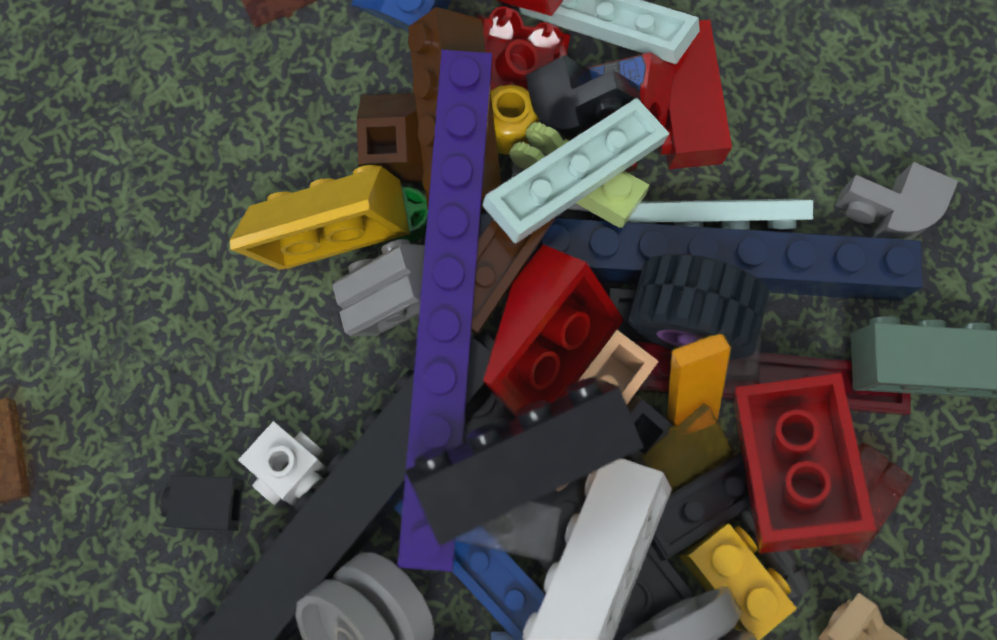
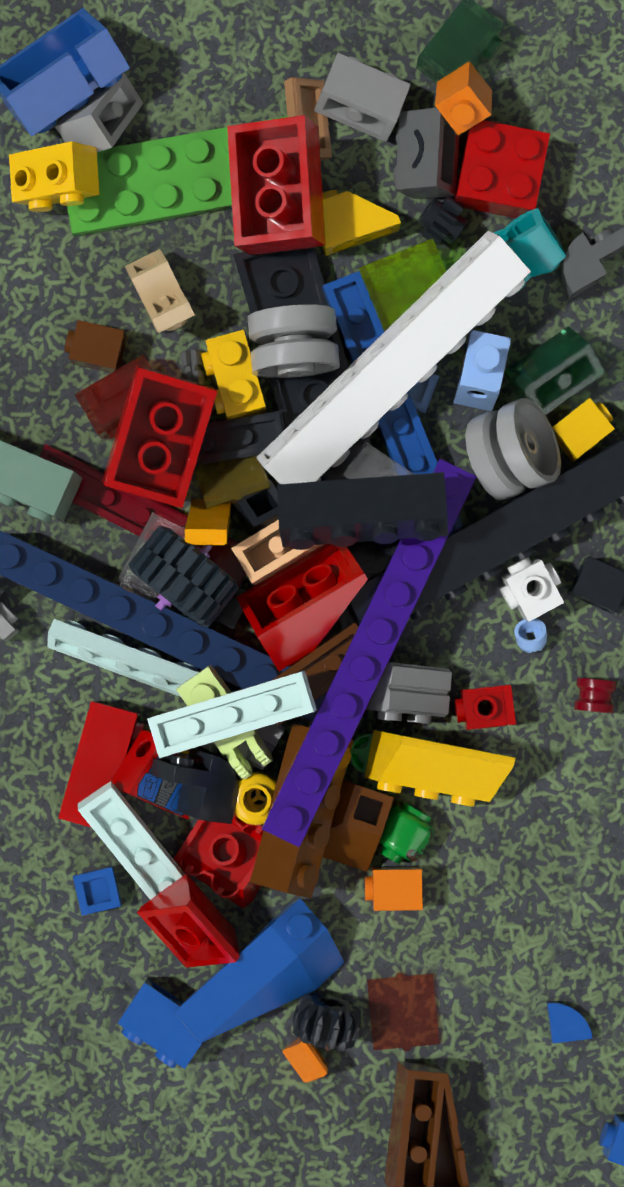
camera: 160 degrees left, 10 degrees up
(93, 26) = (566, 1023): none -> blue tile
(169, 372) = (595, 695): none -> dark red wheel
(276, 403) = (540, 633): none -> light blue hinge
(287, 329) = (502, 707): none -> red brick
(323, 86) = (394, 888): none -> orange brick
(331, 145) = (405, 833): none -> green head
(913, 551) = (96, 346): none -> reddish brown brick

